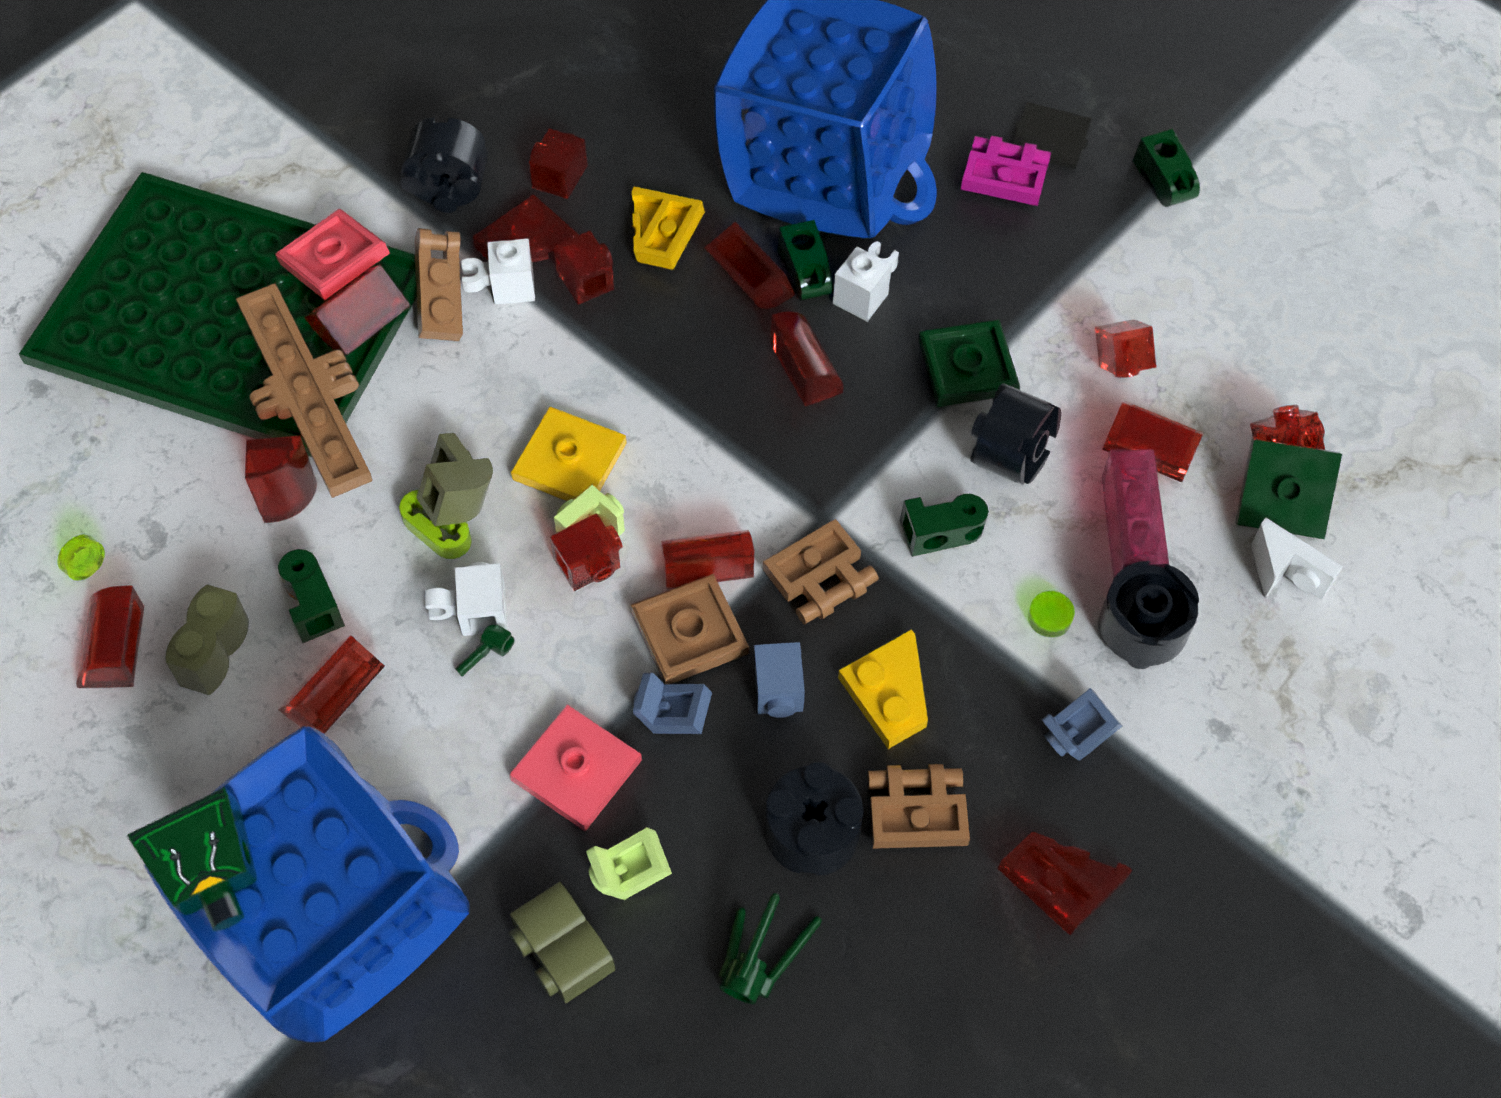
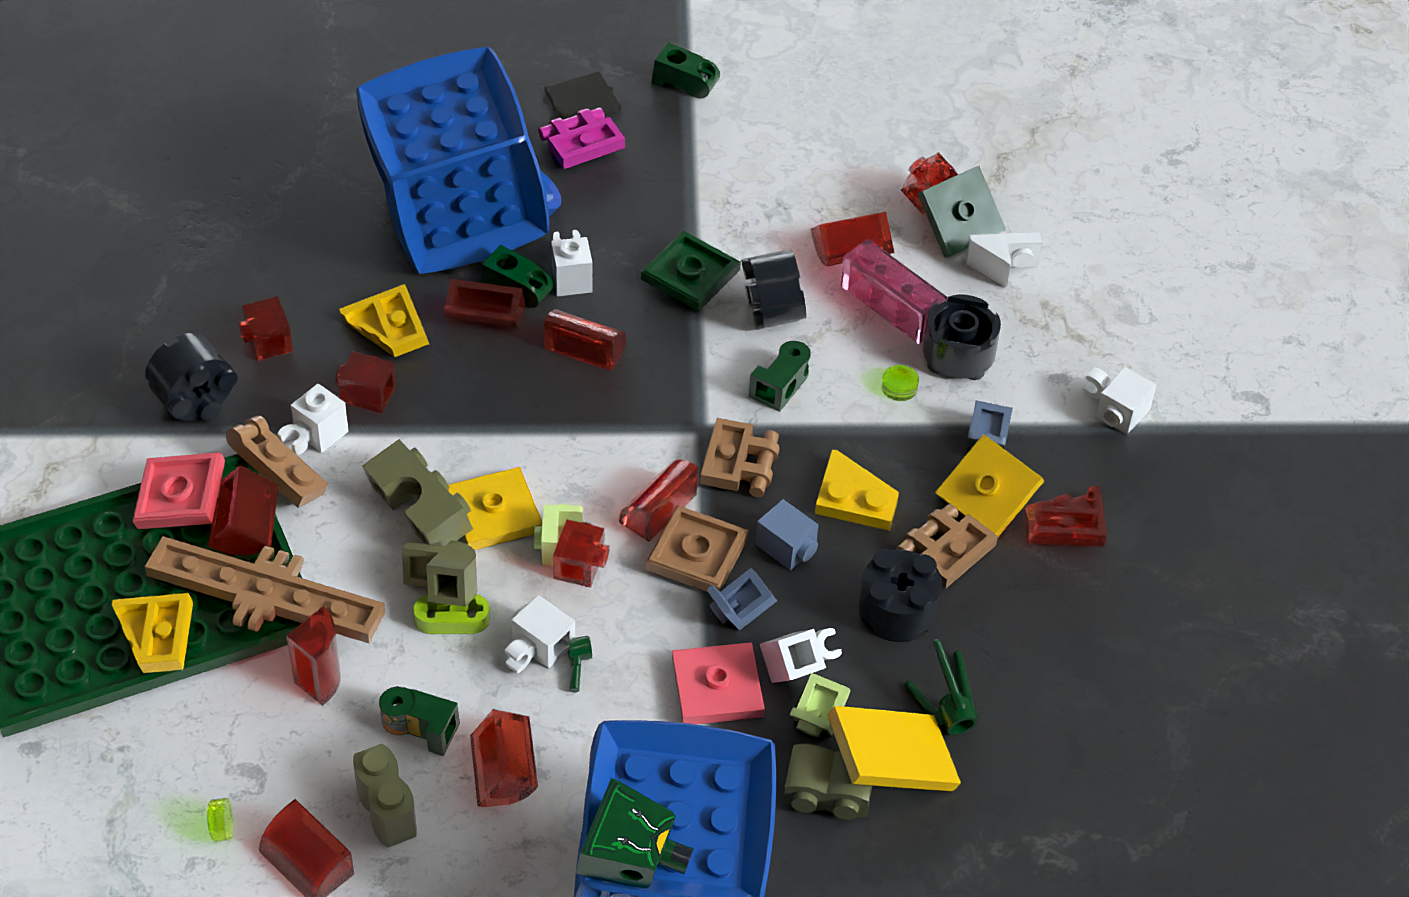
camera: 45 degrees left, 10 degrees down
(192, 360) = (156, 629): none -> yellow wing
(508, 427) = (402, 476): none -> olive arch
(526, 221) = (287, 384): clear red wing -> none
(638, 963) = (893, 749): none -> yellow tile
(654, 798) = (797, 654): none -> white brick
(1015, 784) = (990, 485): none -> yellow plate
(1125, 347) = (781, 194): clear red brick -> none
(1250, 801) = (1121, 400): none -> white brick

